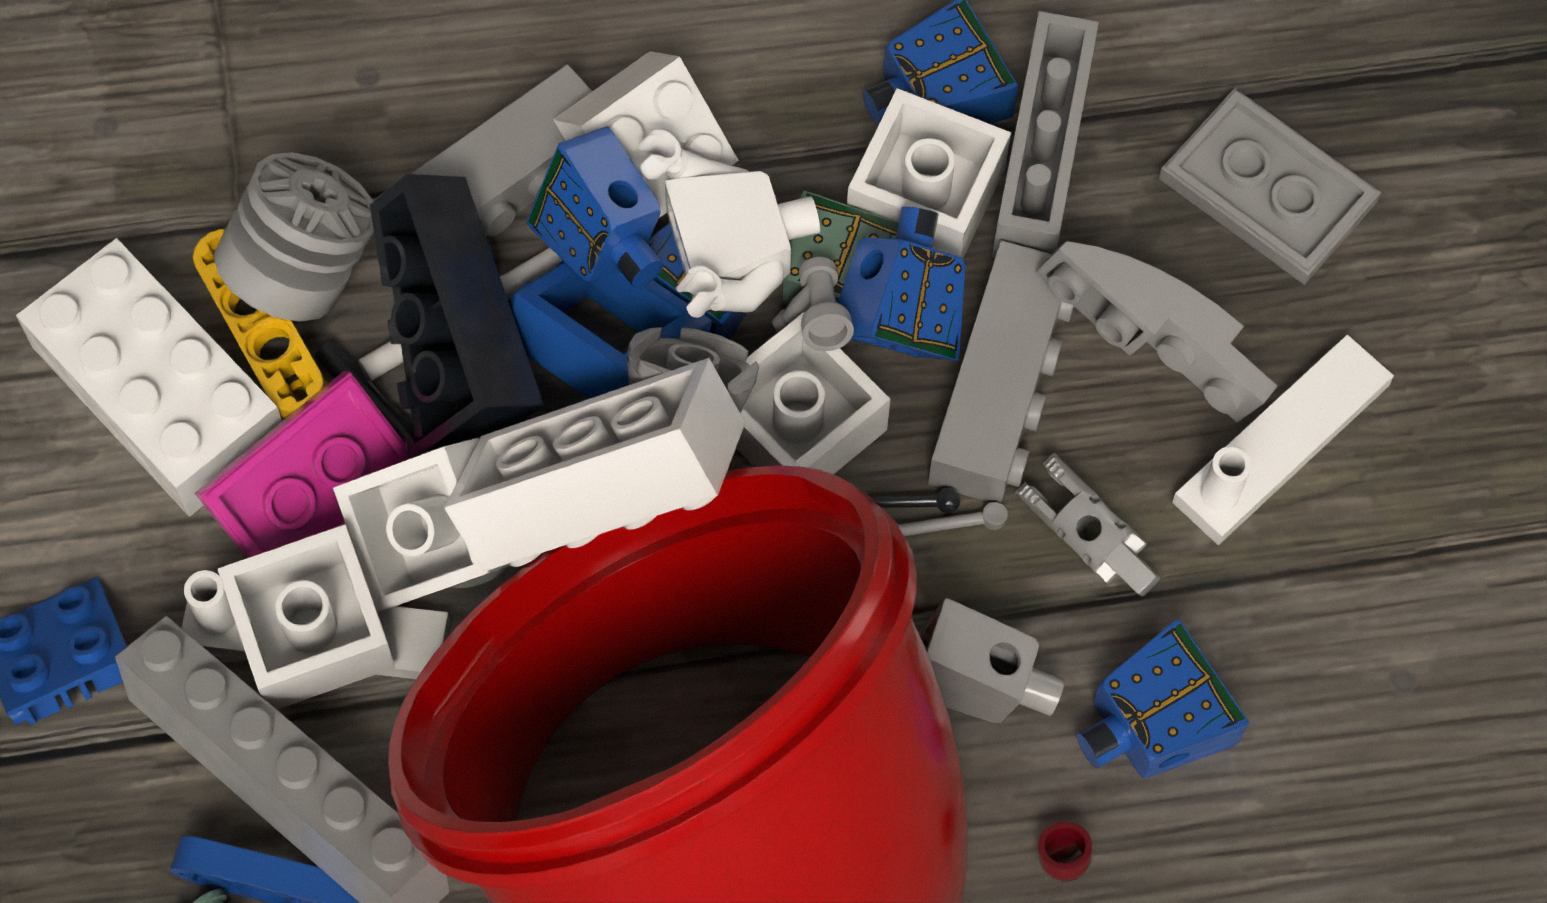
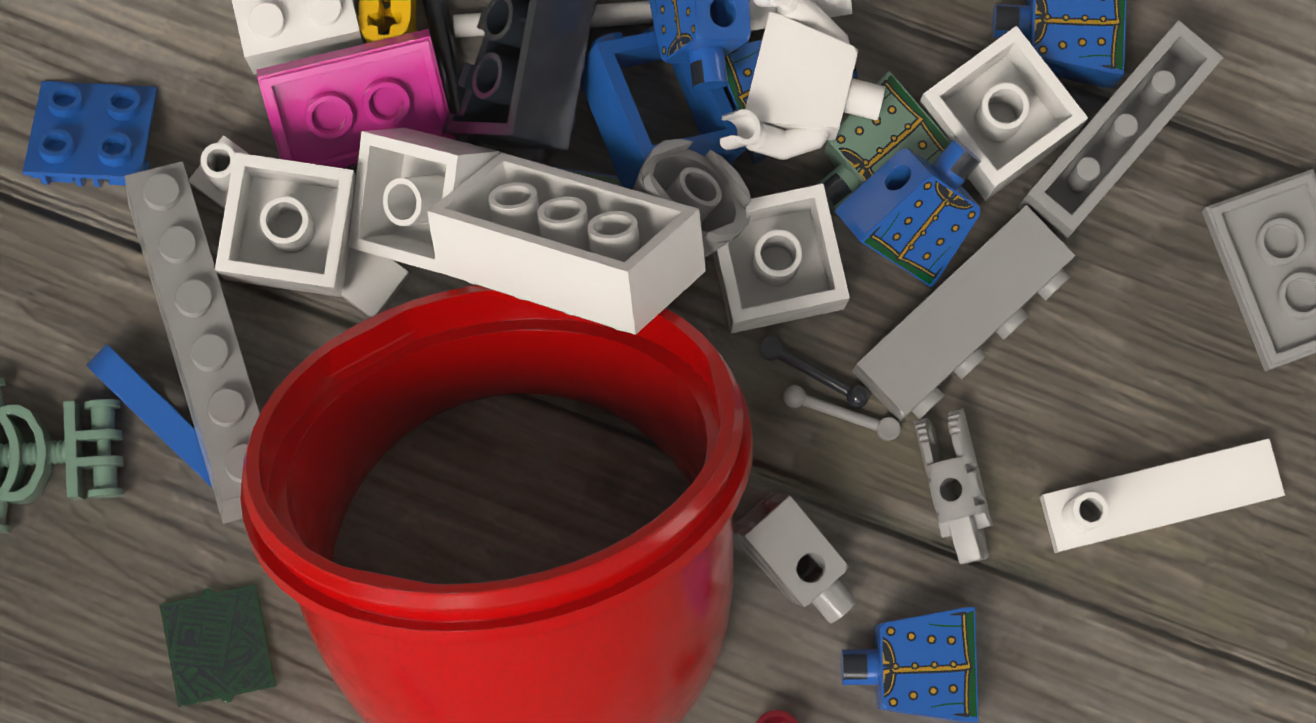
camera: 25 degrees right, 15 degrees up
(824, 322) = (832, 206): light grey piece -> none
(1144, 304) = (1107, 330): light grey slope -> none

